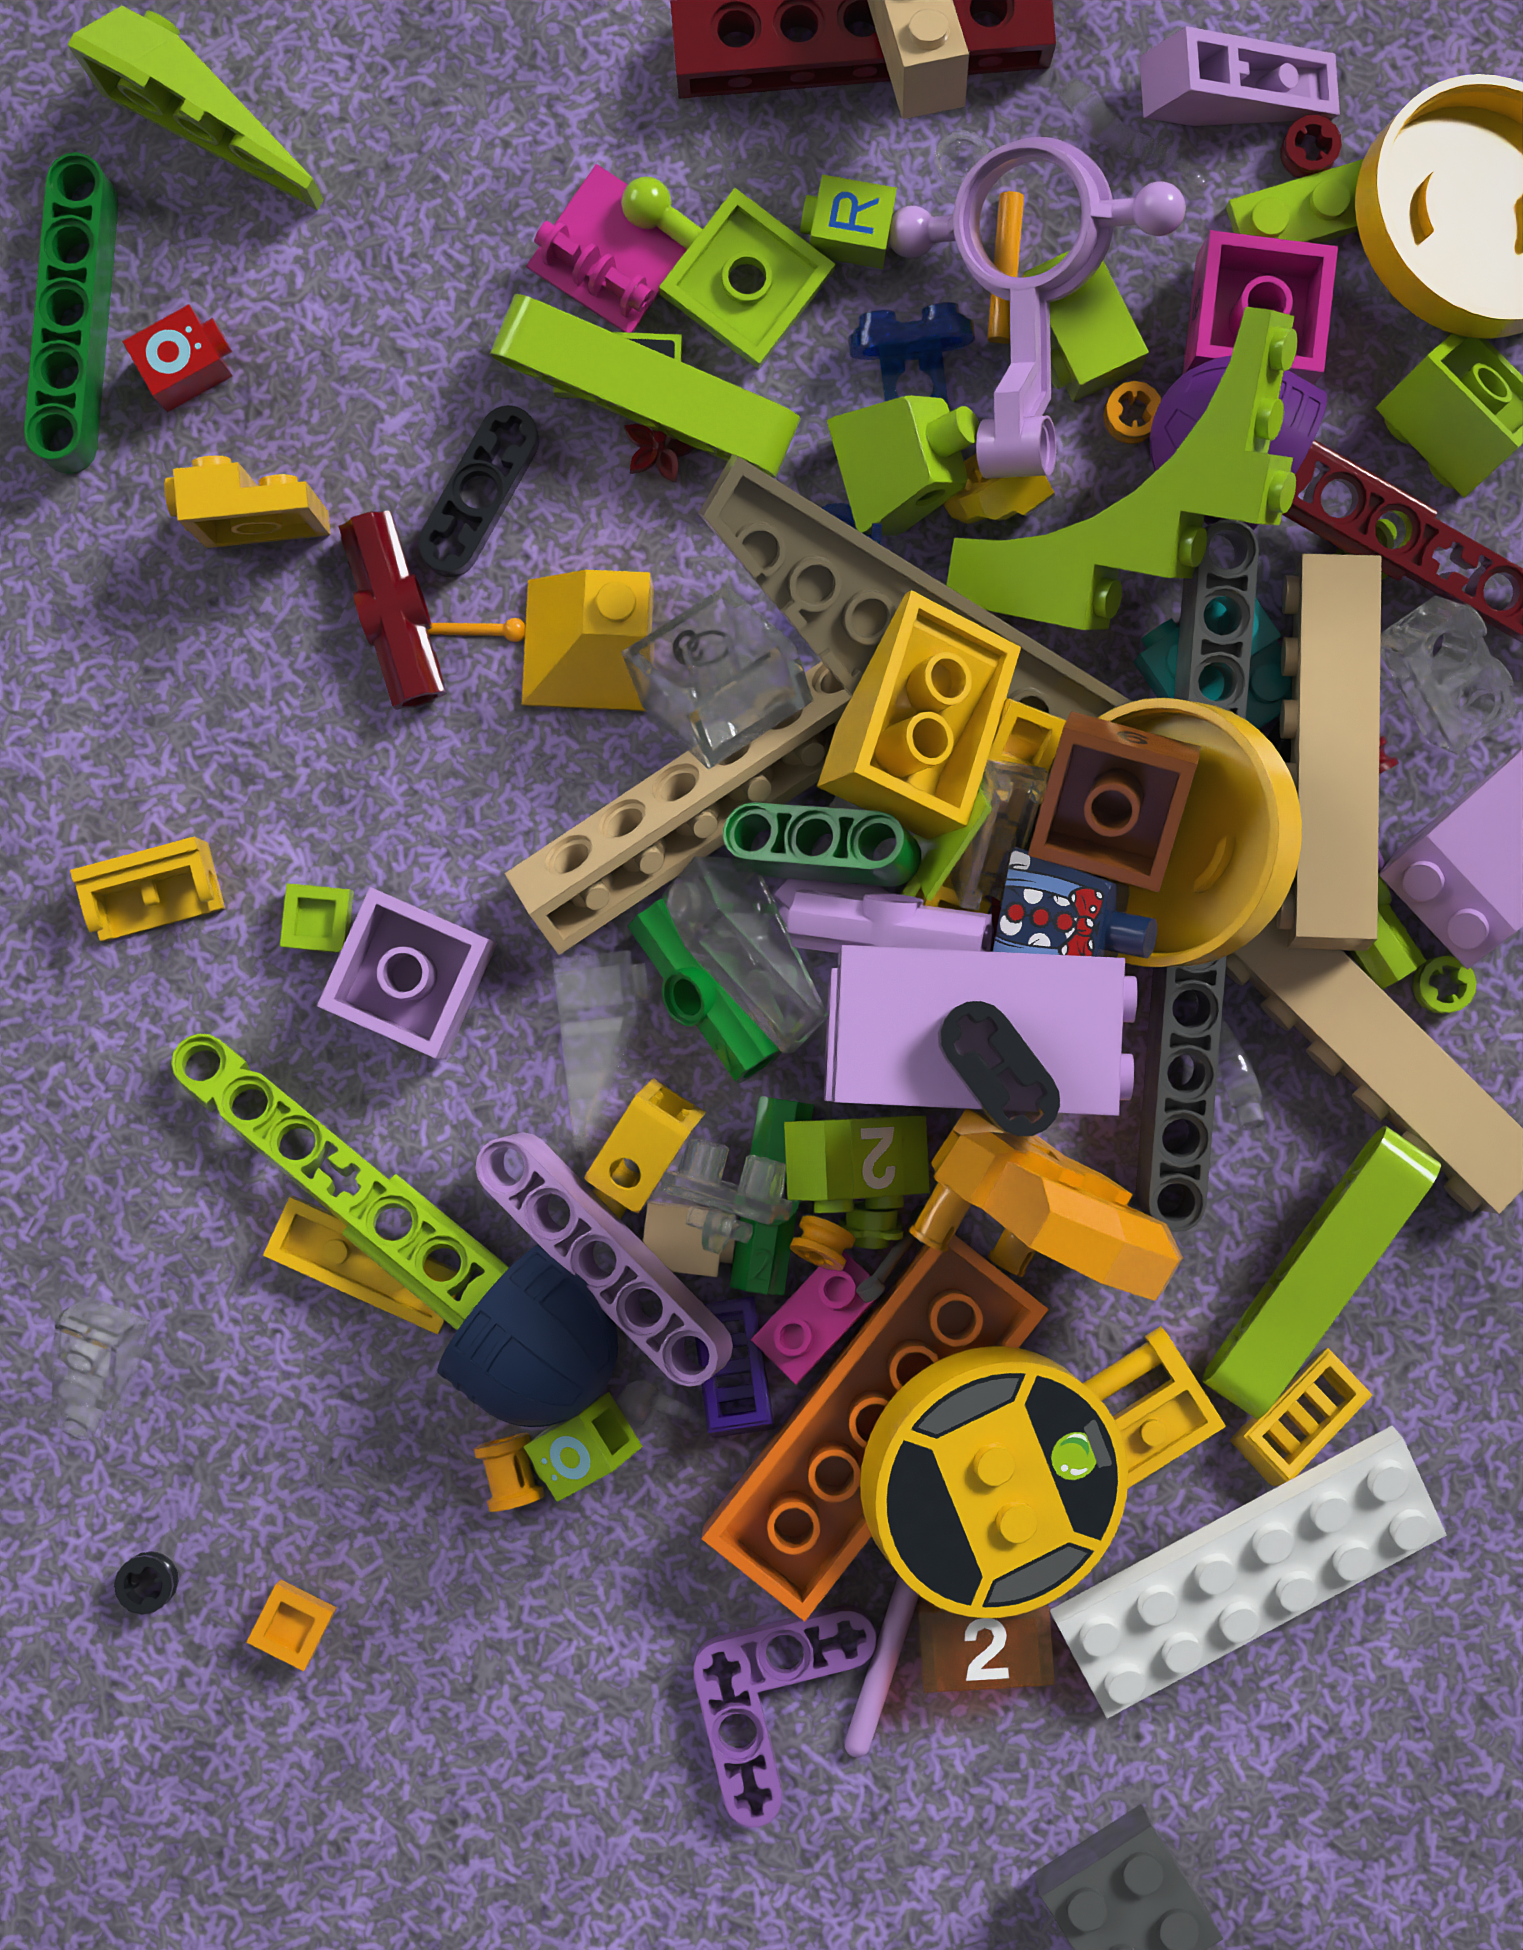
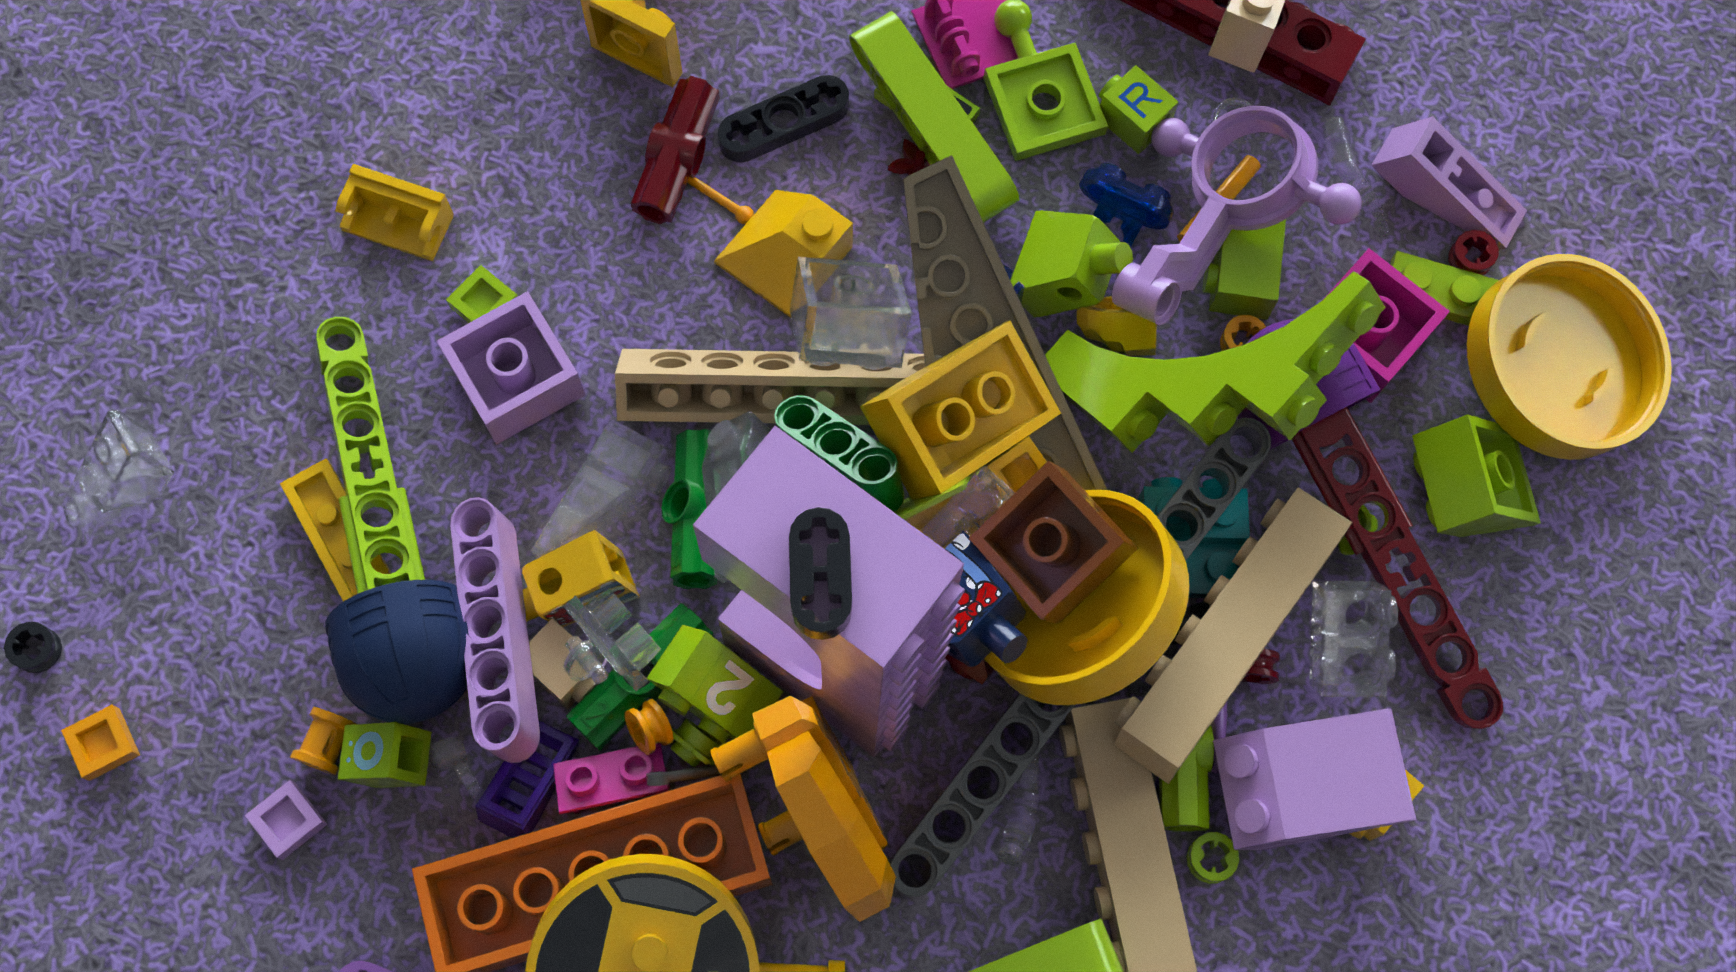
camera: 25 degrees right, 15 degrees down
(531, 1569) = (286, 820): none -> lavender plate

